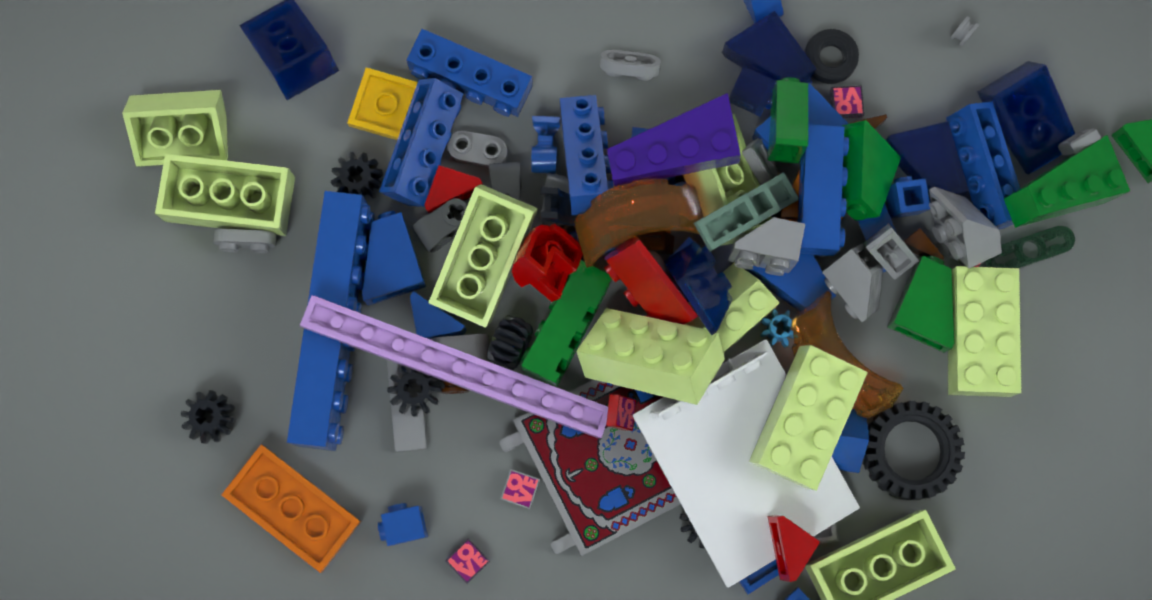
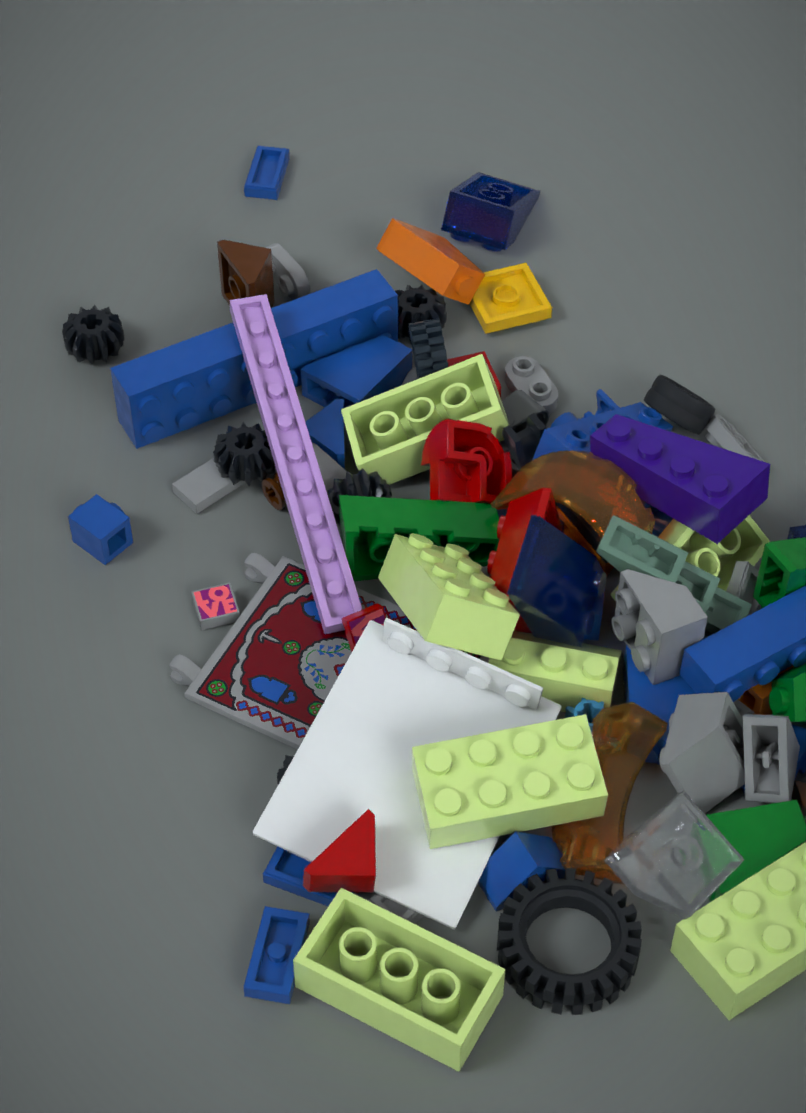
camera: 55 degrees right, 30 degrees down
(118, 175) = (267, 172): none -> blue tile
(176, 125) = (345, 179): yellowish green slope -> none
(225, 194) = (313, 229): yellowish green brick -> none
(247, 278) = (245, 271): none -> reddish brown slope
(291, 508) = (50, 441): orange plate -> none
(326, 135) = (431, 260): none -> orange slope
(421, 142) = (508, 329): blue brick -> none
(432, 213) = (428, 347): none -> black bush
(467, 561) = (104, 605): tile -> none
(470, 73) = (597, 335): blue brick -> none
(579, 75) = (679, 404): none -> black tyre
(921, 360) = (675, 858): none -> clear slope

